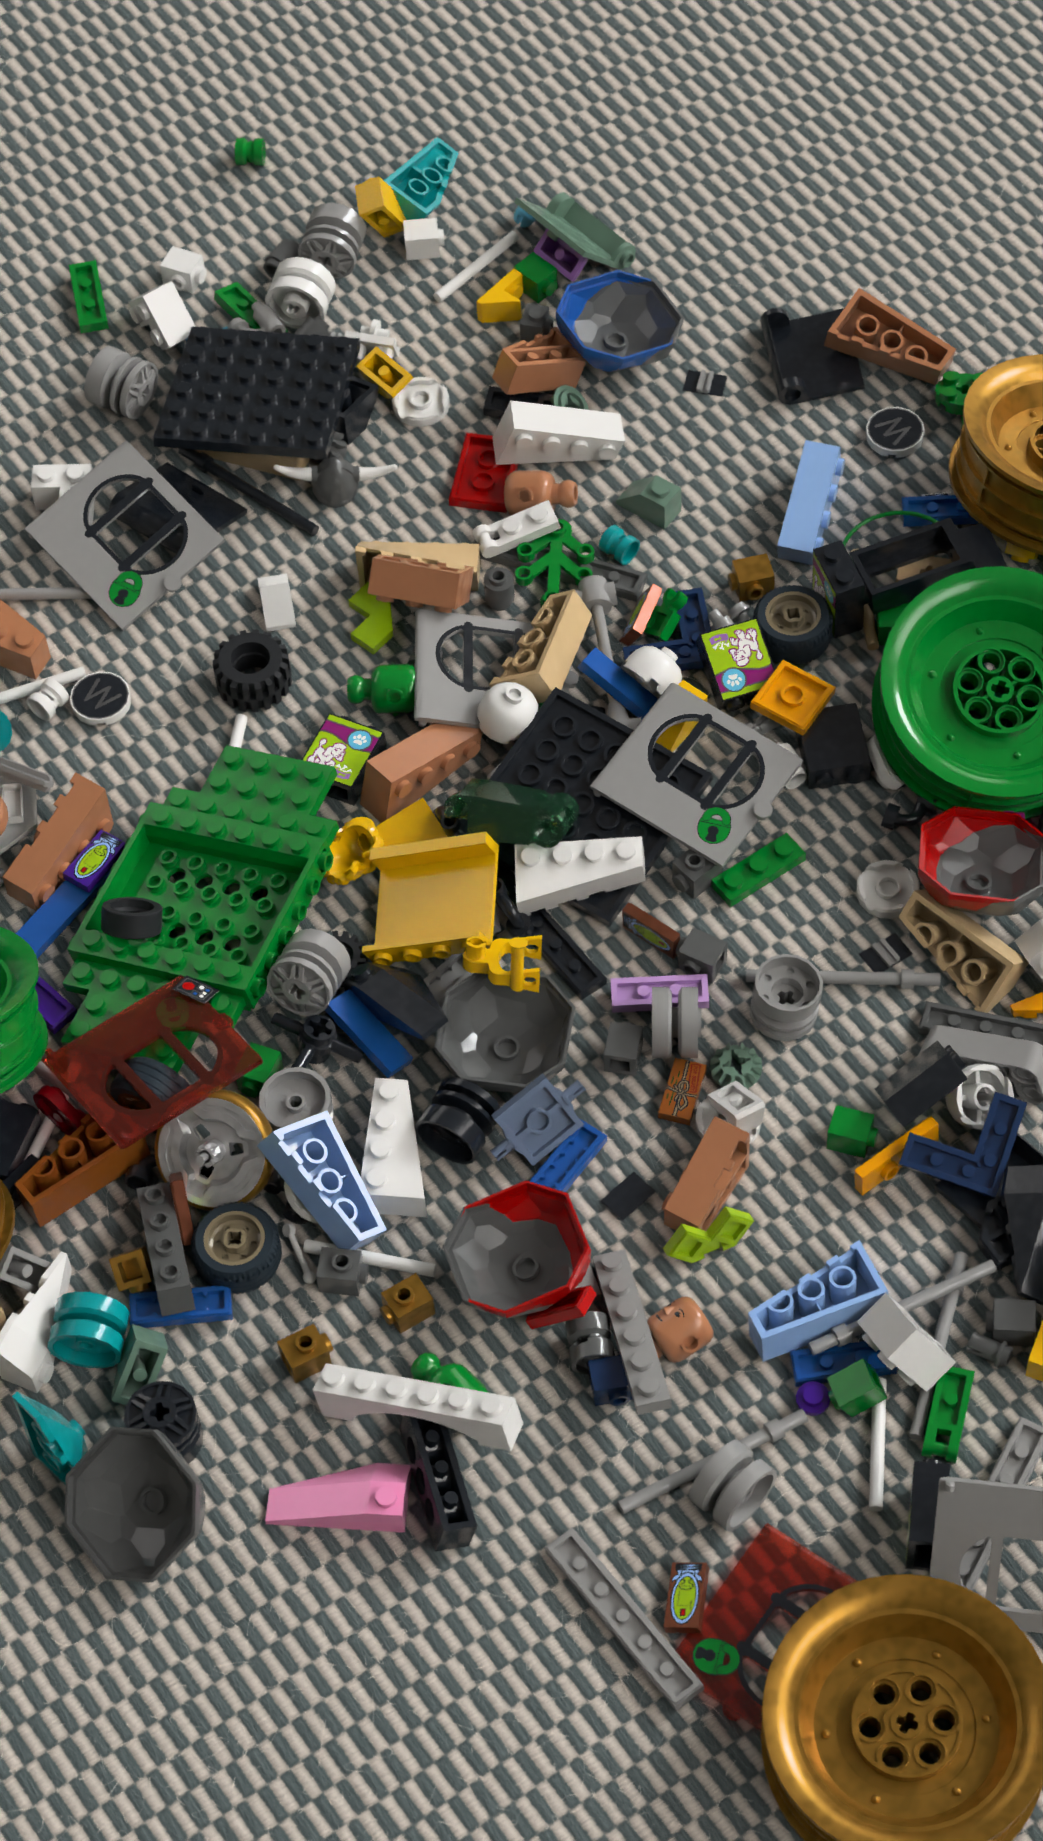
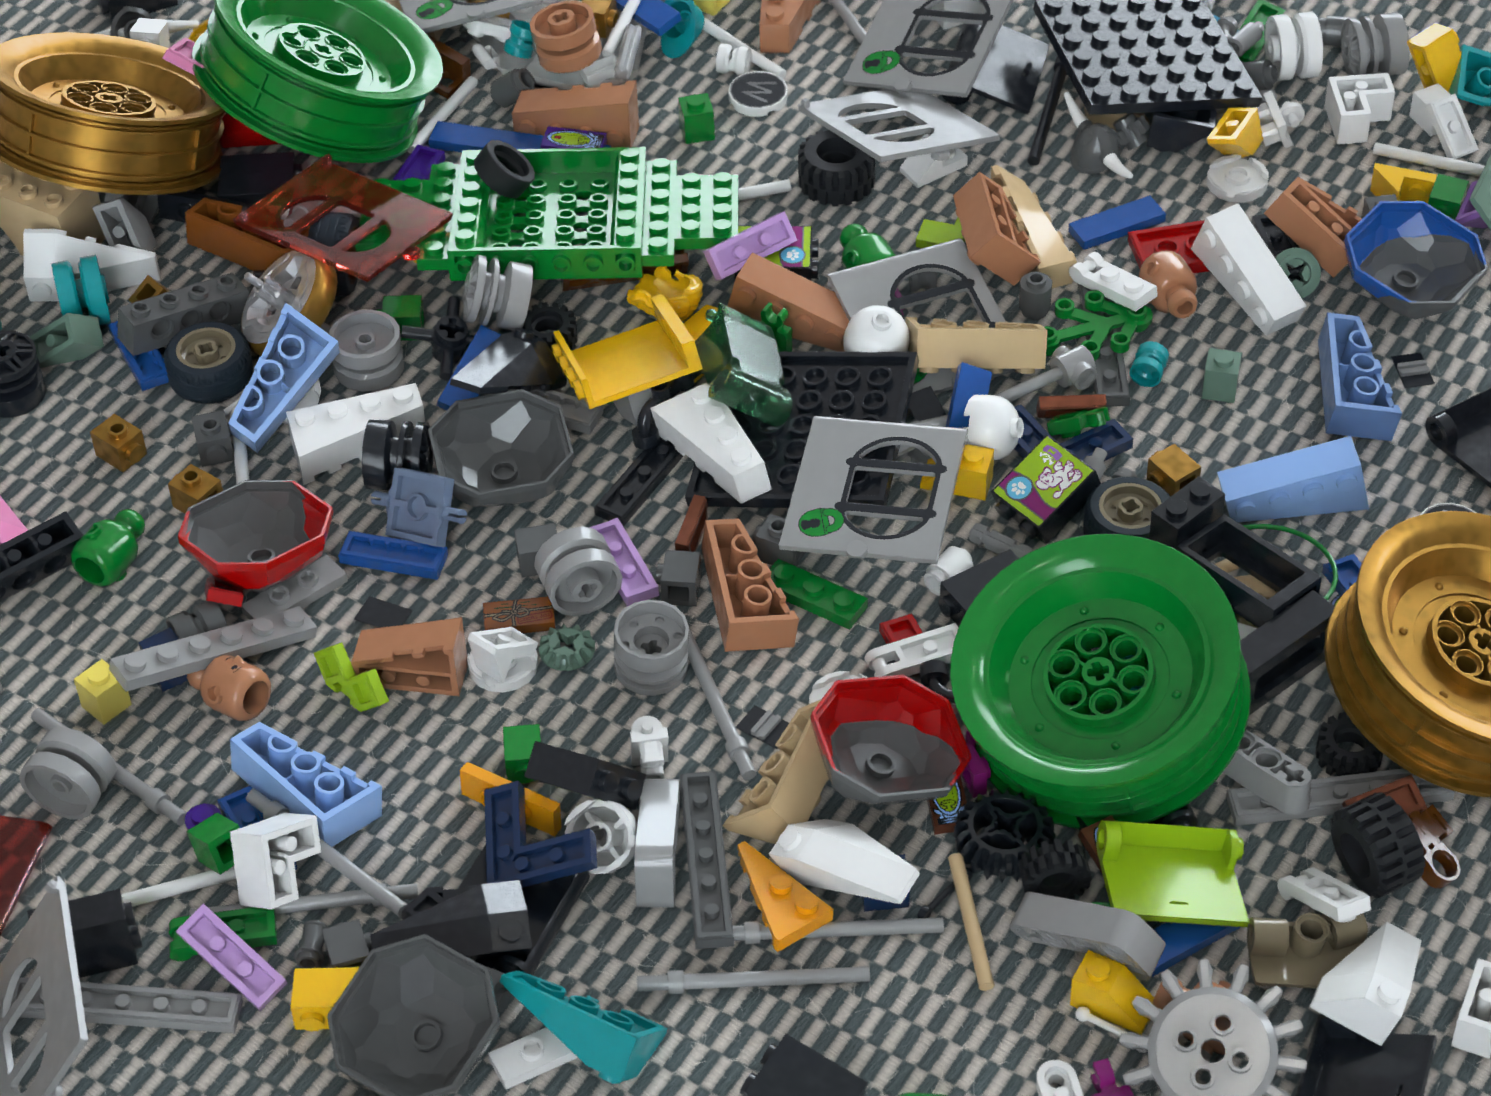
camera: 65 degrees right, 10 degrees down
(117, 754) = (696, 118): none -> green brick
(181, 1207) = (230, 303): copper tile -> none
(195, 989) = (436, 223): black sticker -> none
(274, 563) = (948, 125): none -> light grey door
(345, 762) = (760, 239): none -> lavender plate
(392, 287) = (1356, 102): none -> white brick
(428, 502) = (1116, 222): none -> blue tile
(443, 786) = (782, 332): none -> green plate
(456, 236) = (1452, 127): none -> white plate
(480, 1415) = (69, 521): white arch -> none
(486, 961) = (564, 401): yellow piece -> none
(630, 1440) = (101, 692): none -> light yellow brick
(713, 422) = (1352, 383): none -> medium blue wedge
(742, 913) = (745, 599): none -> nougat wedge
(792, 697) = (1018, 532): light orange tile -> none
(833, 824) = (899, 628): none -> red tile
(864, 819) = (912, 652): none -> white plate
(897, 1034) = (649, 746): none -> white hips
(989, 1408) = (231, 957): none -> lavender plate

